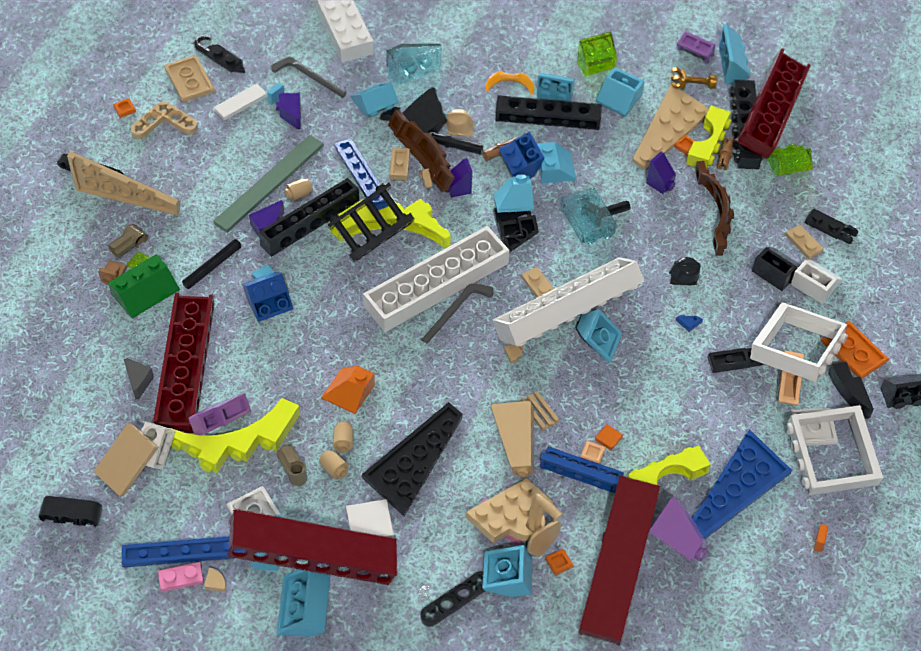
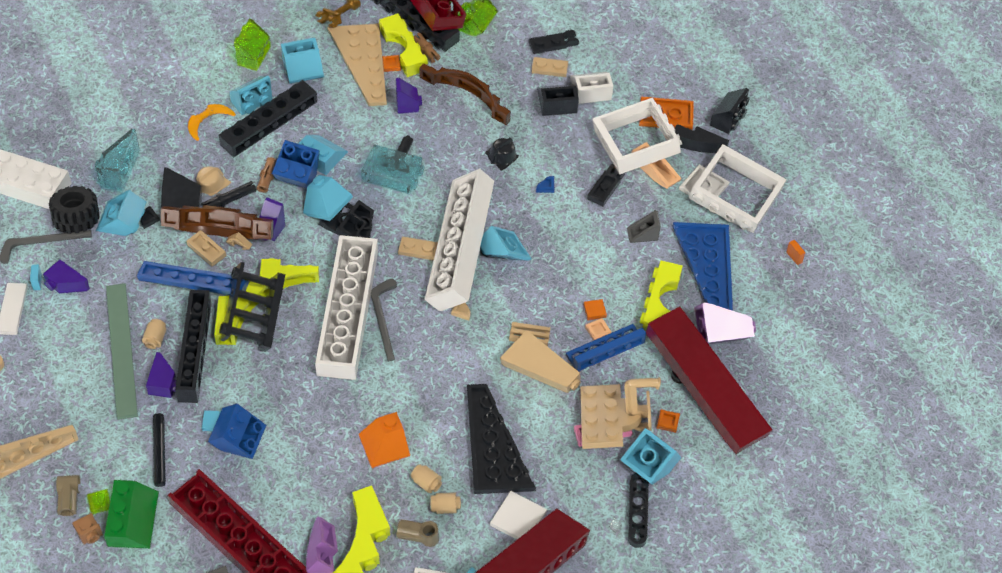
camera: 50 degrees left, 0 degrees up
(348, 69) = (74, 209): none -> black tyre
(721, 415) = (645, 229): none -> dark grey slope

